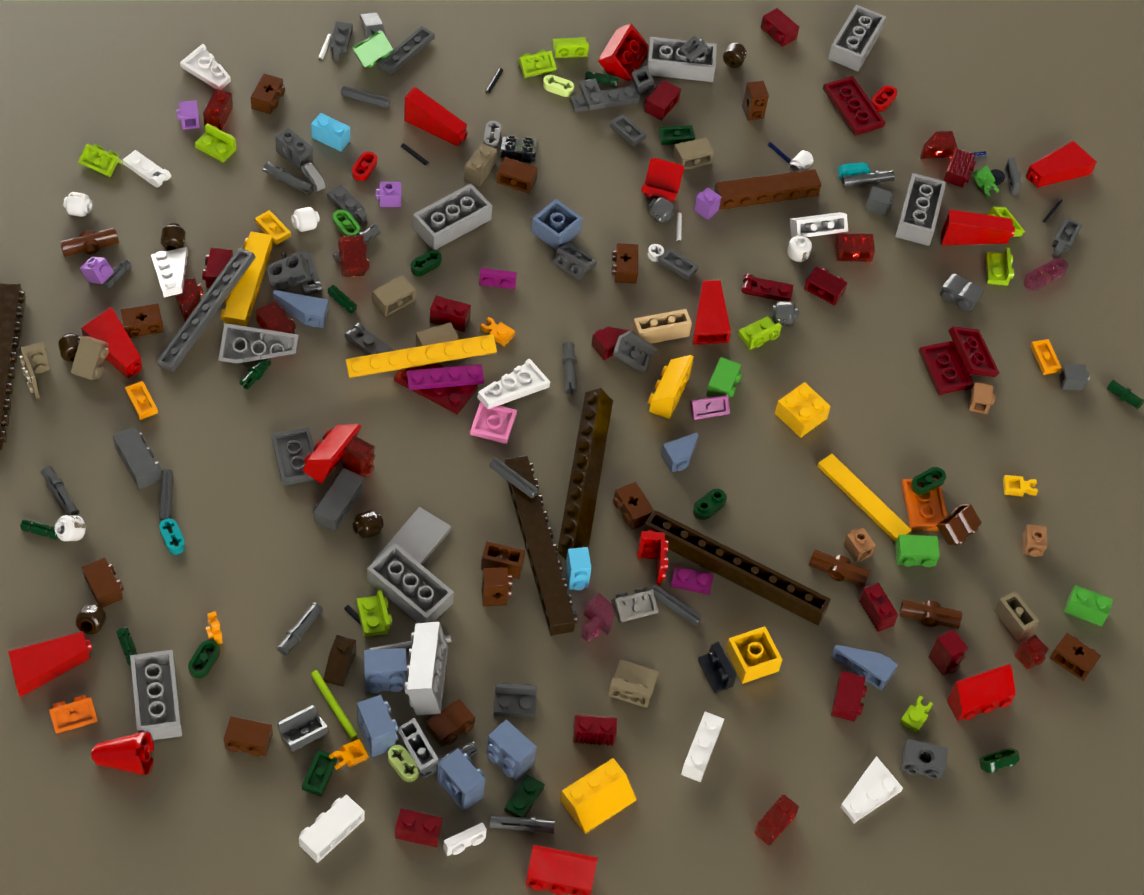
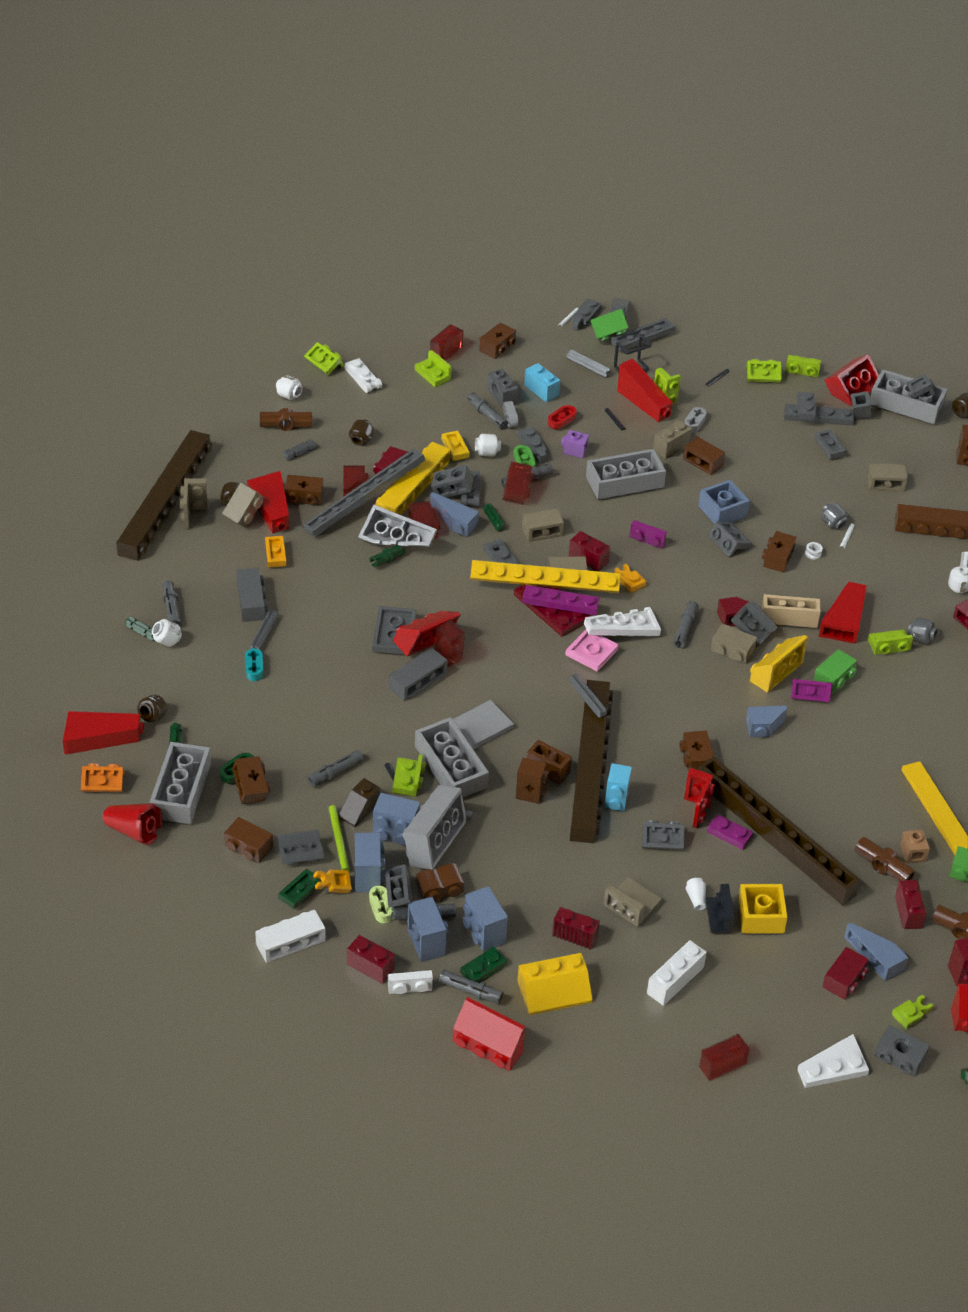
camera: 25 degrees right, 10 degrees down
(96, 270) = (281, 440): medium lavender brick -> none
(102, 582) = (175, 683): reddish brown brick -> none
(170, 270) = (346, 454): white wing -> none
(188, 114) = (418, 341): medium lavender brick -> none
(203, 66) = (450, 309): white wing -> none
(213, 631) = (256, 746): light orange plate -> none
(228, 680) = (250, 780): none -> reddish brown brick
(368, 524) = (435, 700): dark brown head -> none
(411, 78) = (640, 347): none -> black piece
(425, 262) = (585, 507): dark green beam -> none
(455, 105) = (668, 384): none -> lime bracket
(515, 700) = (511, 882): dark grey bracket -> none
(518, 145) = (721, 436): black hinge -> none
(558, 85) = (777, 393): yellowish green beam -> none
(585, 472) = (663, 709): dark brown brick -> none
(601, 617) = (622, 836): clear pink brick -> none
(602, 78) = (824, 397): dark green axle -> none
(622, 377) = (733, 643): none -> dark tan brick
(662, 100) = (875, 426): dark red brick -> none
(663, 179) = (846, 490): red bracket -> none
(676, 134) = (871, 456): dark green plate -> none
(676, 605) = (704, 847): dark grey axle -> none
(678, 264) = (832, 565): dark grey plate -> none
(688, 655) = (697, 892): none -> white cone
(707, 203) = (883, 521): medium lavender brick -> none
(711, 503) = (776, 772): dark green plate -> none
(767, 288) = (913, 606): dark red plate -> none
(802, 409) = (904, 715): yellow brick -> none

